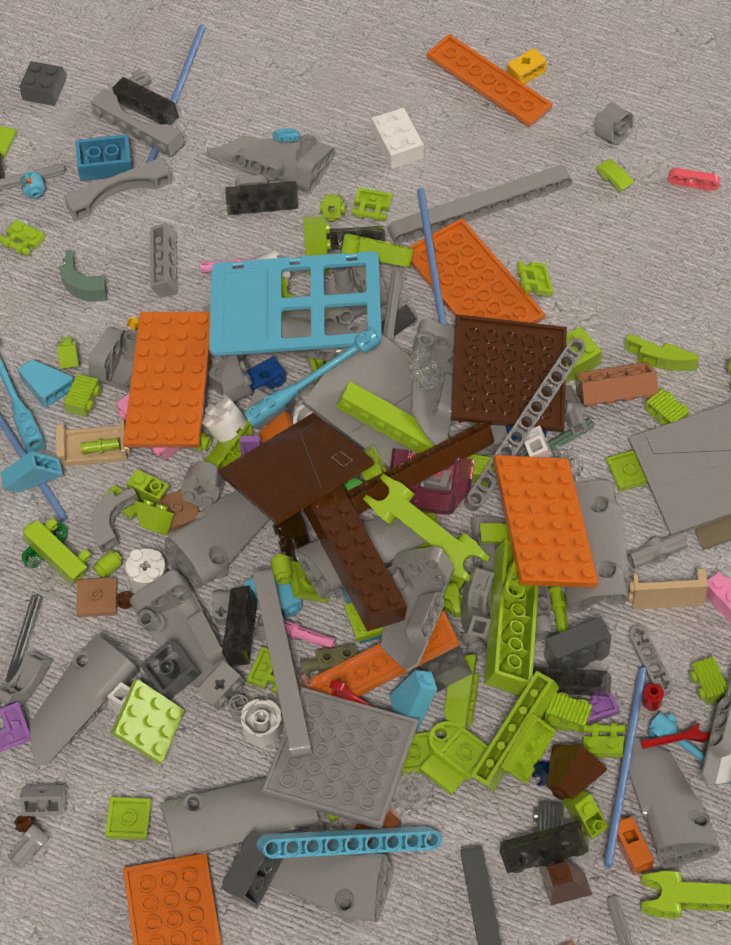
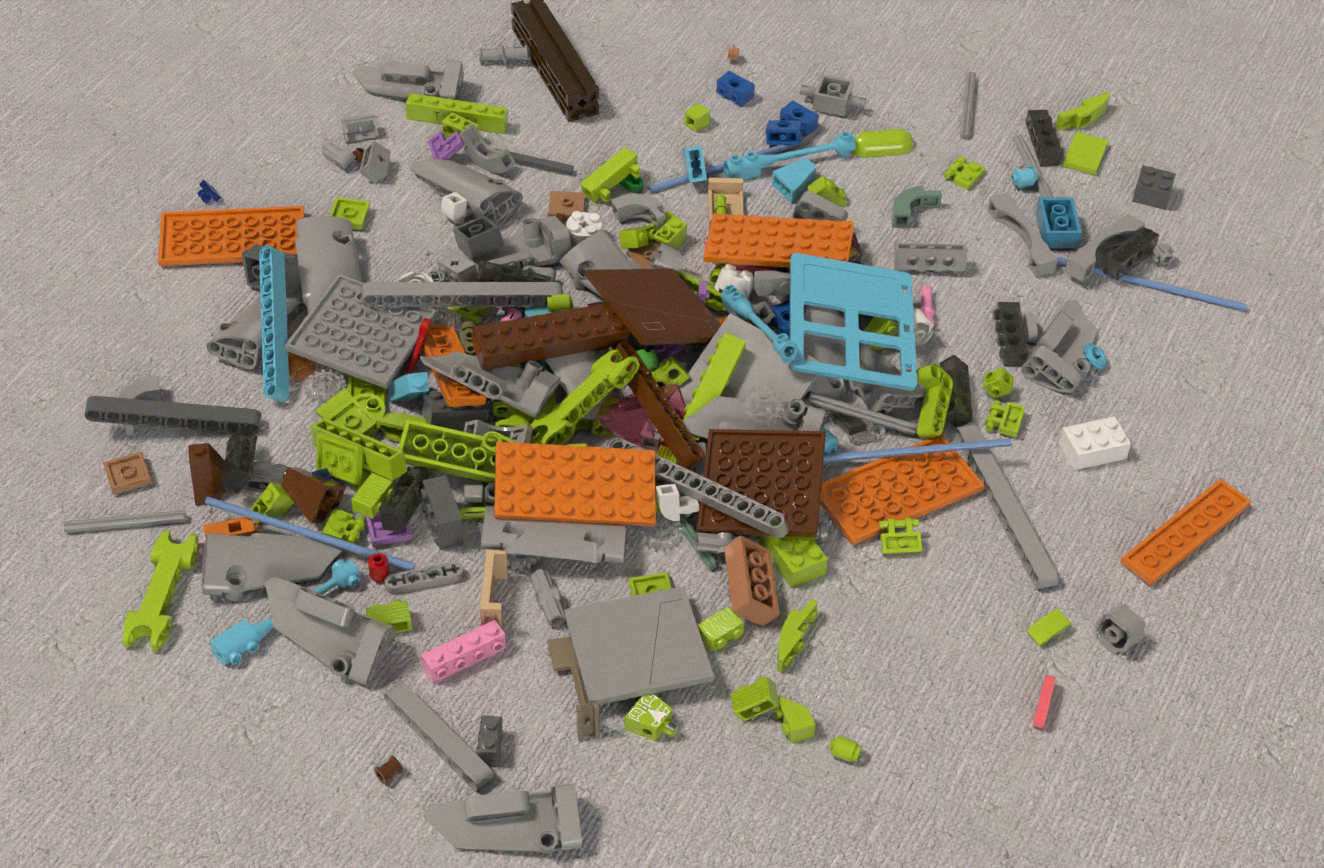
camera: 90 degrees right, 10 degrees down
(82, 395) = (779, 201): lime brick -> none
(107, 564) = (594, 206): lime brick -> none
(147, 721) = (429, 219): lime plate -> none
(315, 237) = (941, 349): lime brick -> none
(527, 66) = (1207, 565): yellow brick -> none
(691, 734) = (330, 590): red piece -> none

